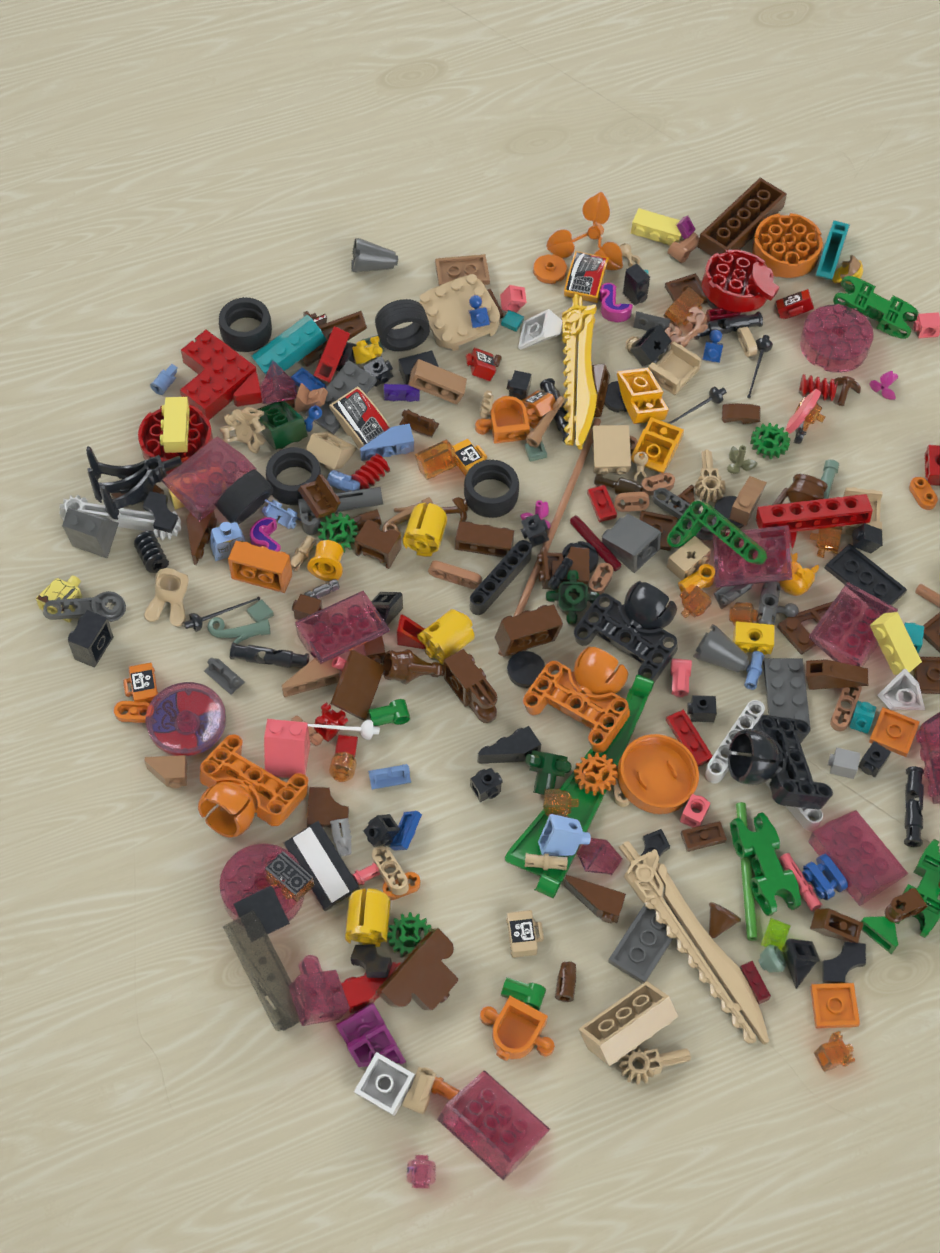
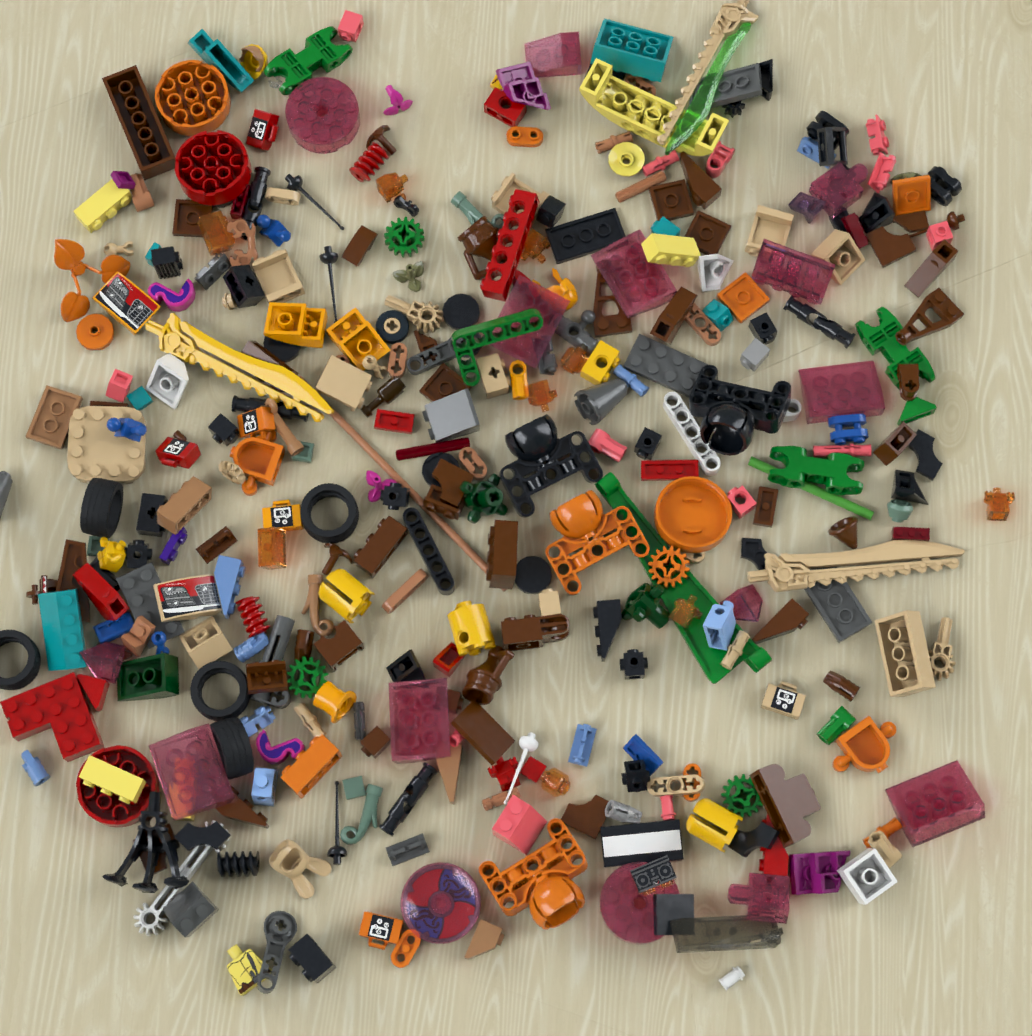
camera: 60 degrees left, 15 degrees up
(229, 1003) = (732, 977): none -> white pin
(246, 429) = (140, 713): tan piece -> none
(395, 713) = (521, 713): green piece -> none
(421, 1172) = (949, 880): clear pink head -> none
(505, 686) = (549, 602): none -> tan brick
(560, 573) = (458, 497): black axle -> none
(632, 501) = (407, 394): nougat beam -> none
(685, 459) = (388, 318): none -> black bush
(747, 500) = (459, 291): medium nougat slope -> none
(763, 282) = (235, 146): tile -> none
(775, 933) = (880, 496): clear neon green brick -> none
(799, 416) = (393, 184): coral tile -> none
(834, 1005) = (956, 482): orange tile -> none

